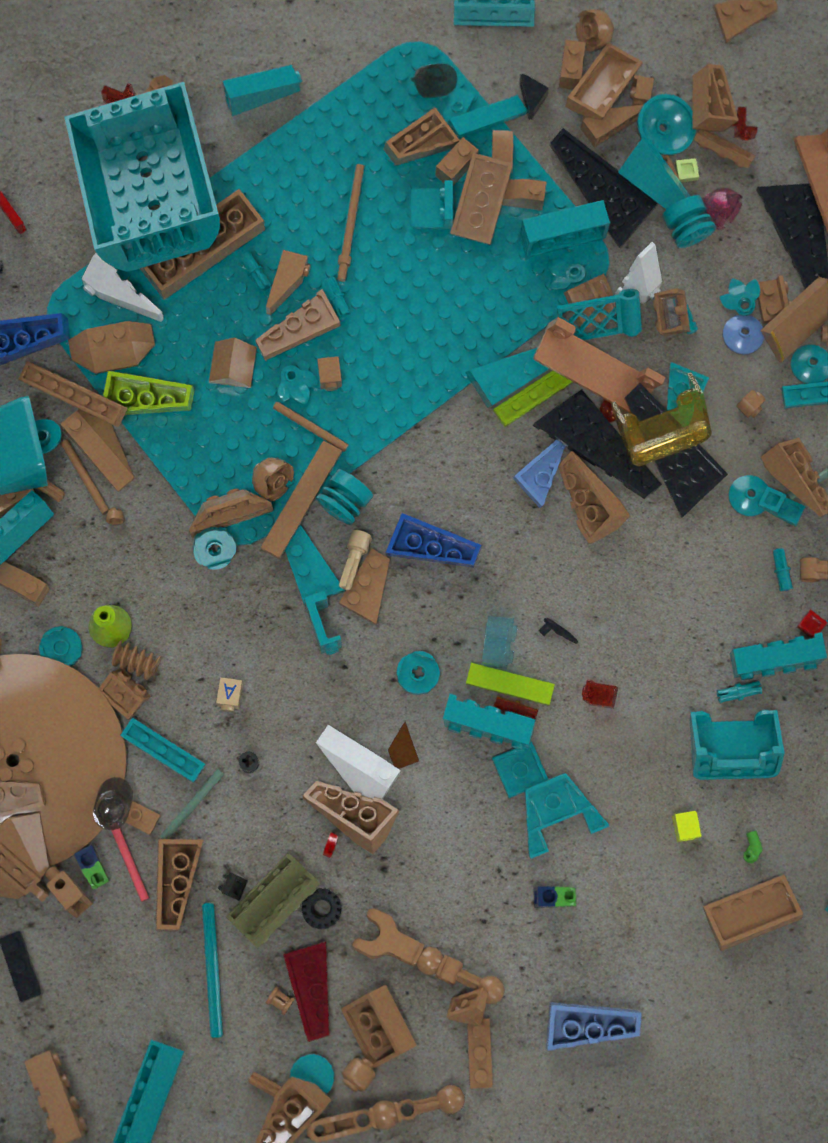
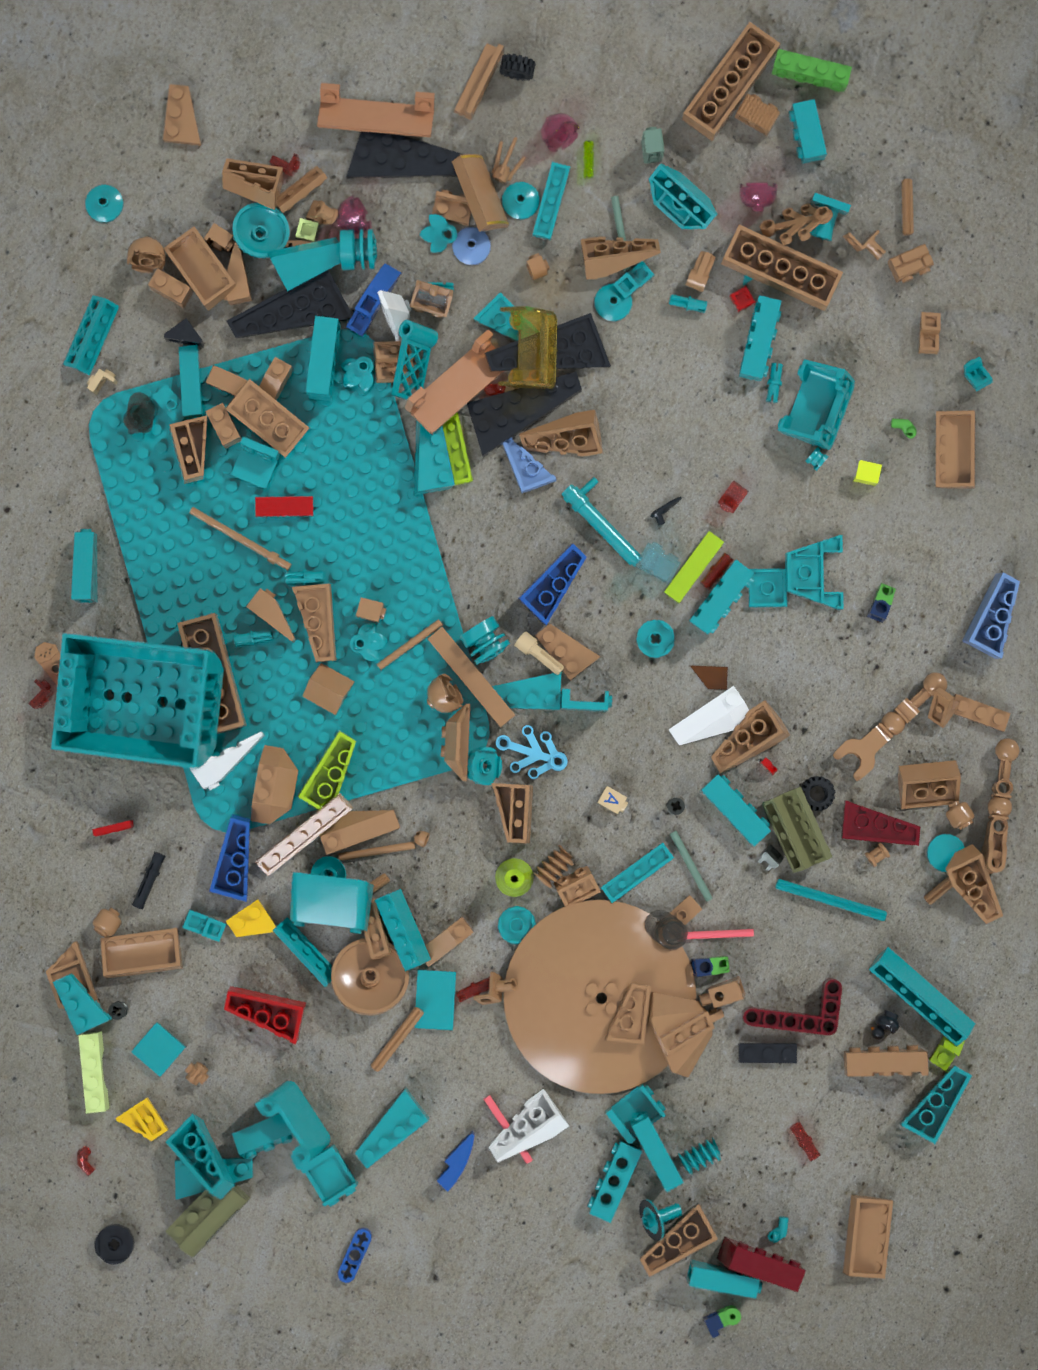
camera: 65 degrees left, 10 degrees up
(70, 985) = (799, 1018): none -> dark red beam
(101, 1083) = (885, 1021): none -> black animal
(175, 874) = (747, 902): medium nougat wedge -> none
(179, 598) = (515, 810): none -> medium nougat wedge
(248, 597) = (535, 753): none -> medium azure plant
(269, 828) = (736, 811): none -> teal brick
(400, 252) = (284, 506): none -> red tile
(452, 33) = (97, 381): none -> tan bracket
(526, 543) = (581, 504): none -> teal cylinder
(623, 253) = (369, 303): none -> blue slope
(678, 766) = (816, 458): none -> teal wheel
(709, 175) = (321, 213): none -> medium nougat piece

